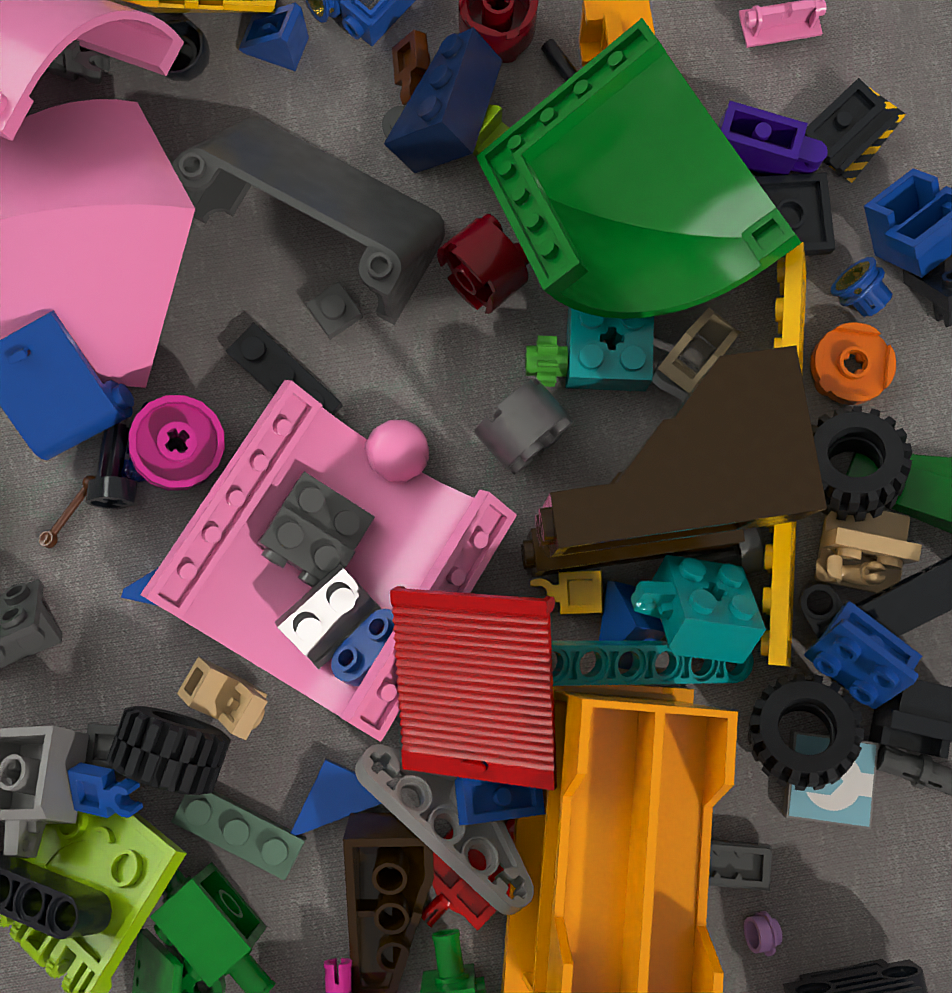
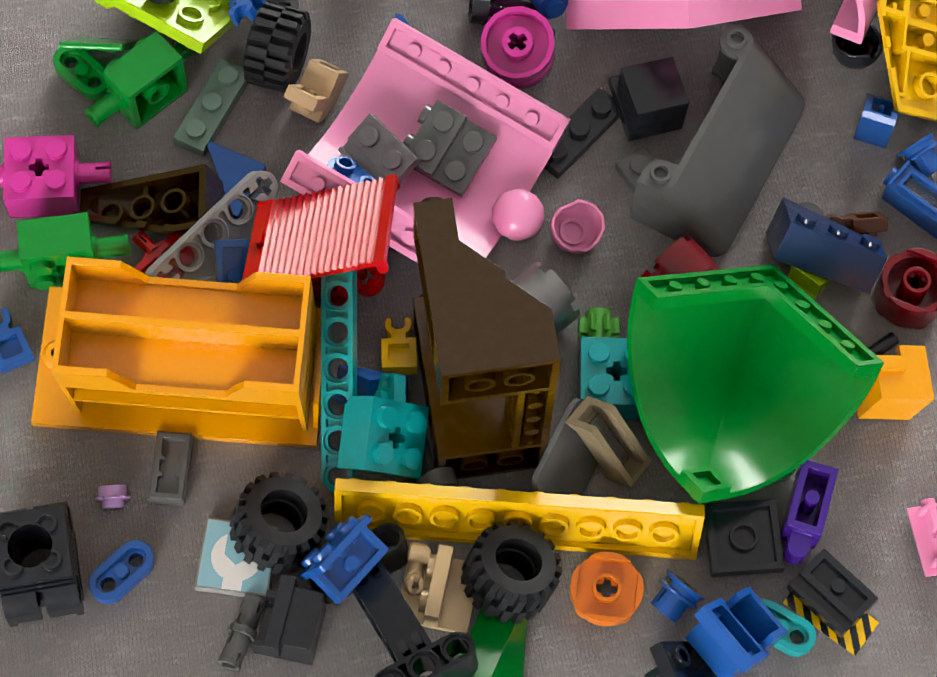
camera: 90 degrees right, 15 degrees down
(249, 289) = (649, 98): none -> black plate
(417, 380) = (577, 227): none -> bright pink hair
(854, 915) = (118, 570): none -> blue plate
(881, 177) = (794, 625): none -> teal plate

